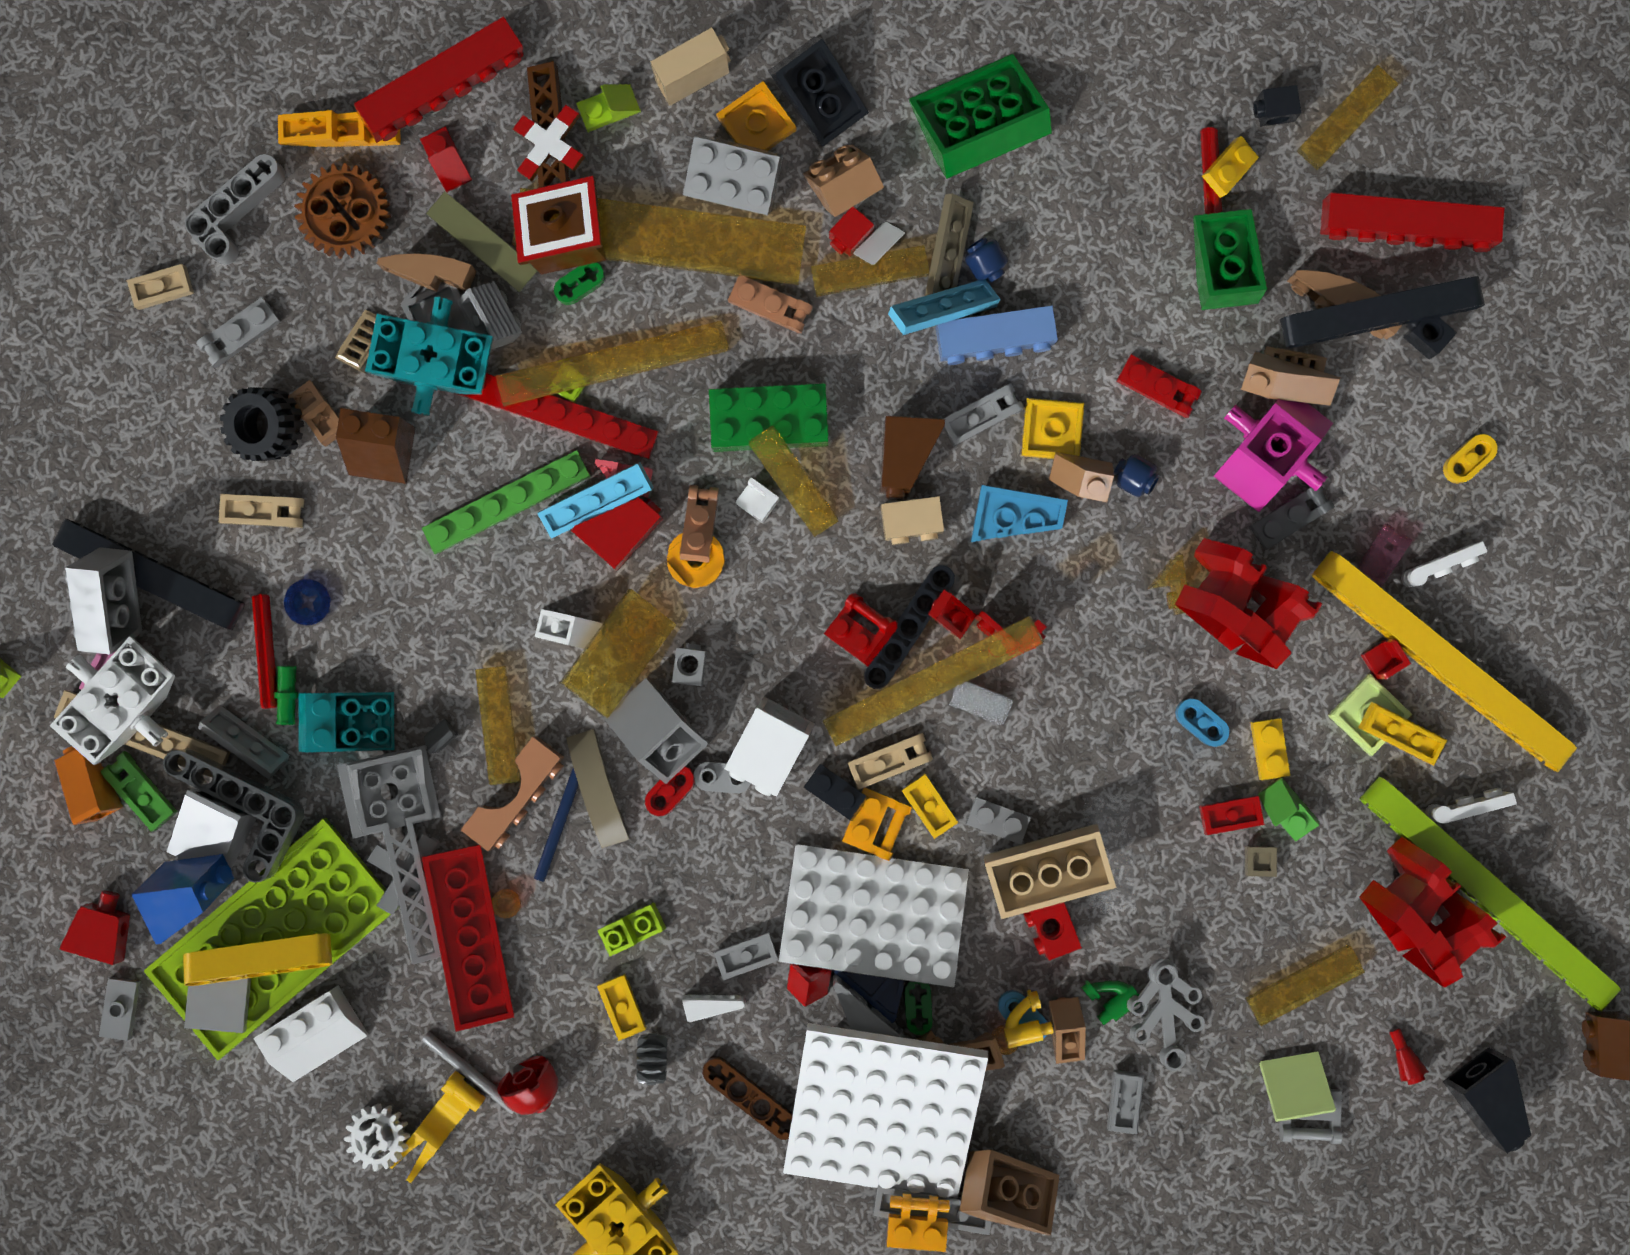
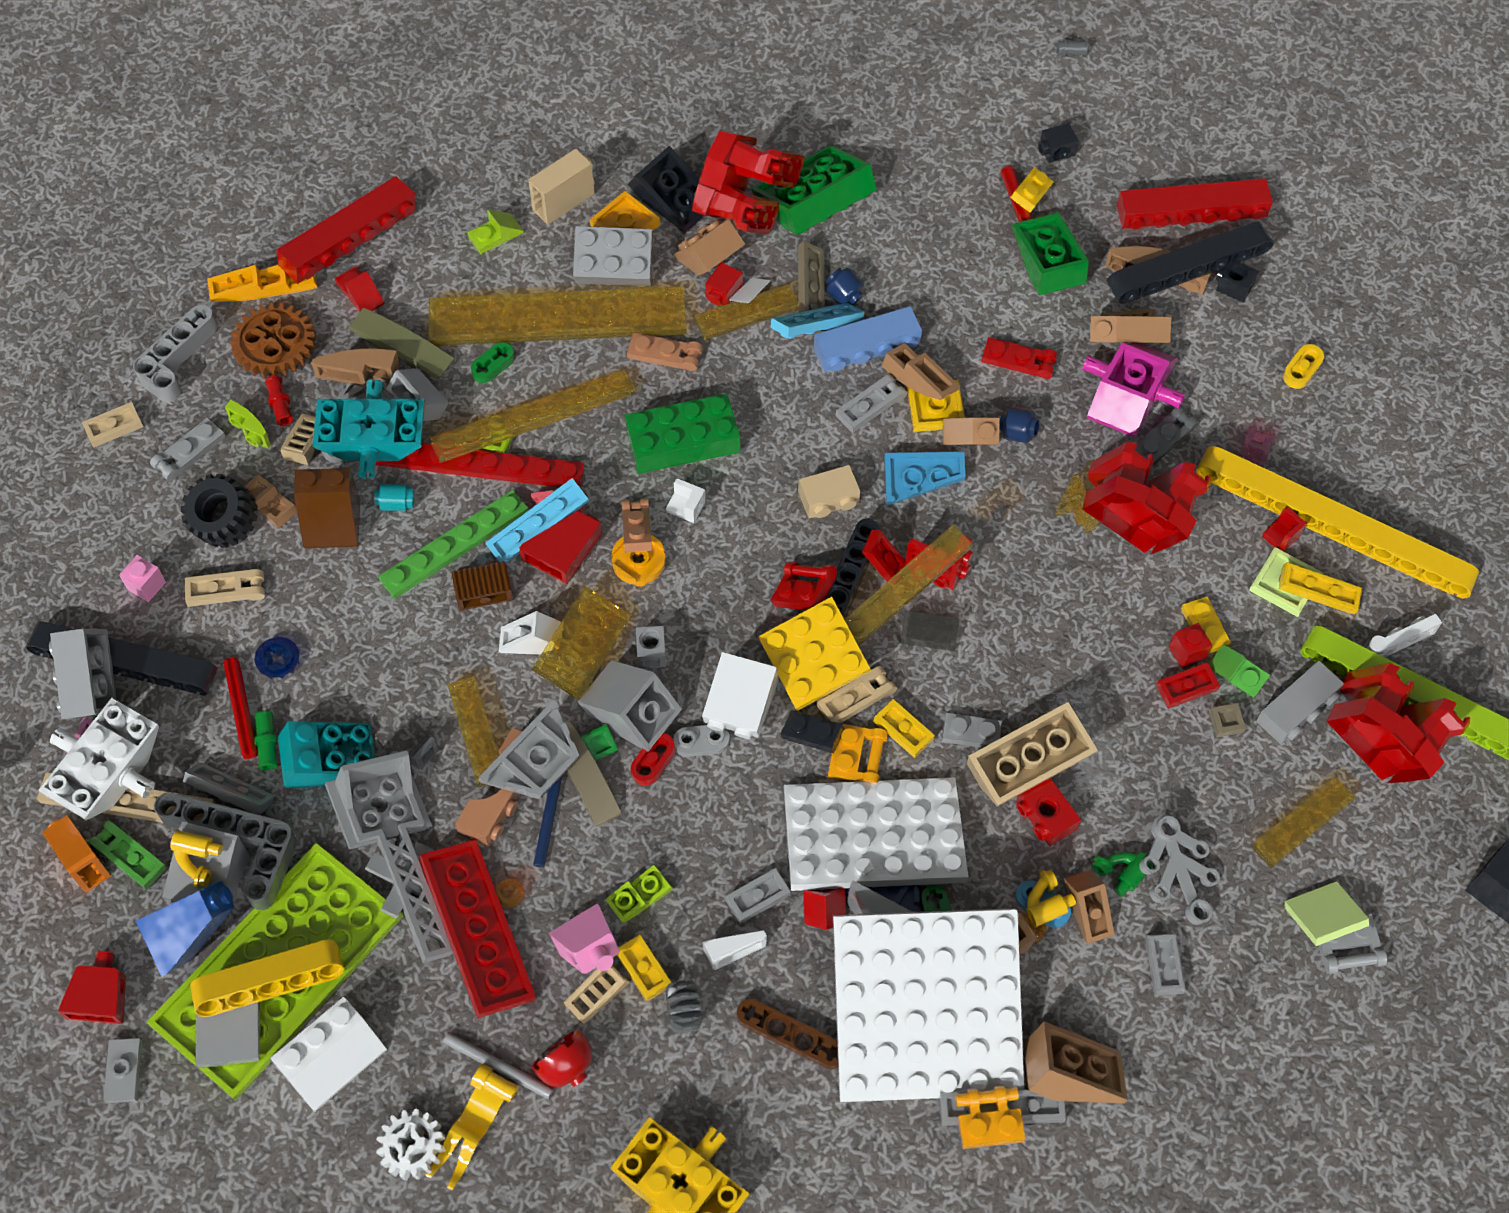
camera: 15 degrees left, 25 degrees down
(176, 487) = (142, 578): none -> bright pink brick
(192, 818) = (197, 845): none -> yellow plant
(306, 318) = (252, 428): none -> lime slope
(341, 289) = (279, 400): none -> red pin
(450, 436) = (394, 497): none -> teal brick
(527, 561) = (482, 585): none -> reddish brown brick
(549, 778) = (534, 757): none -> light grey wing
(572, 976) = (586, 941): none -> bright pink torso
(576, 233) = (466, 314): piece -> none
(590, 1009) = (612, 991): none -> tan slope
(618, 762) = (599, 742): none -> green tile
(793, 481) = (715, 475): clear yellow plate -> none
(854, 714) = (814, 653): none -> yellow plate
(893, 85) = (727, 173): none -> red piece
(905, 451) = (811, 432): reddish brown slope -> none
(1043, 393) = (919, 372): none -> medium nougat slope
(1201, 722) = (1137, 611): dark azure plate -> none
(1246, 774) = (1190, 645): none -> red brick
(1341, 859) = (1301, 703): none -> light grey brick
(1347, 117) = (1117, 143): clear yellow plate -> none
(1409, 1065) = (1427, 876): red cone -> none
(1442, 565) = (1309, 447): white plate -> none

